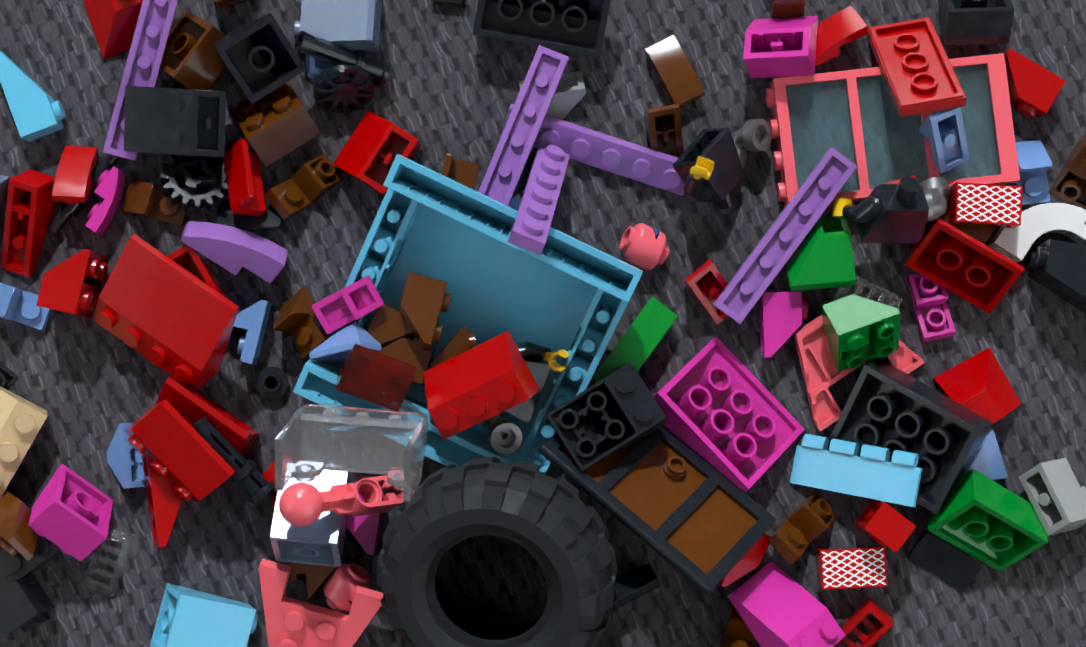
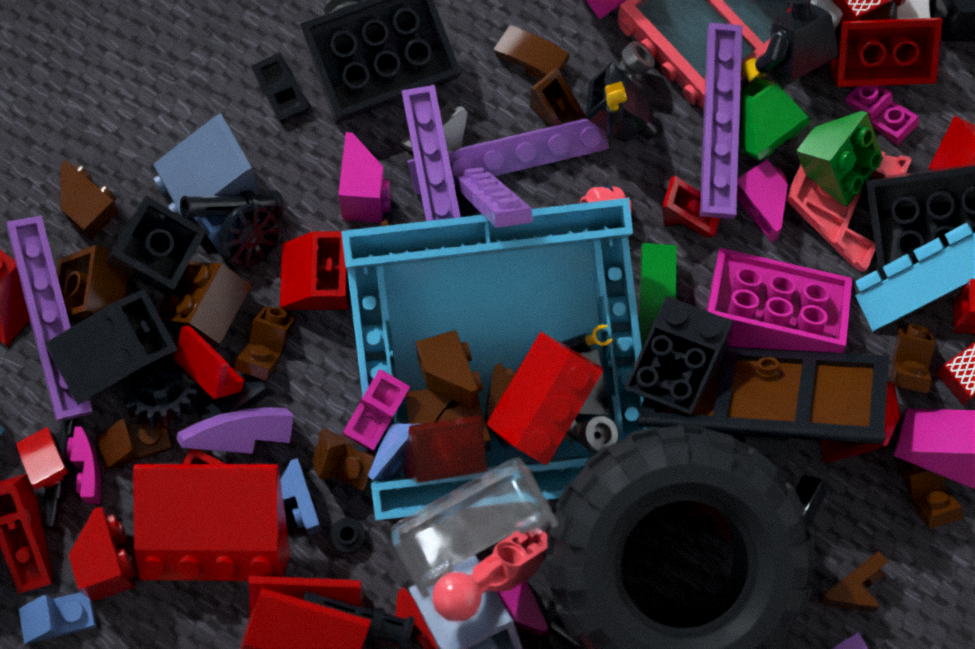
camera: 35 degrees left, 15 degrees down
(457, 104) = (362, 188): none -> dark pink slope

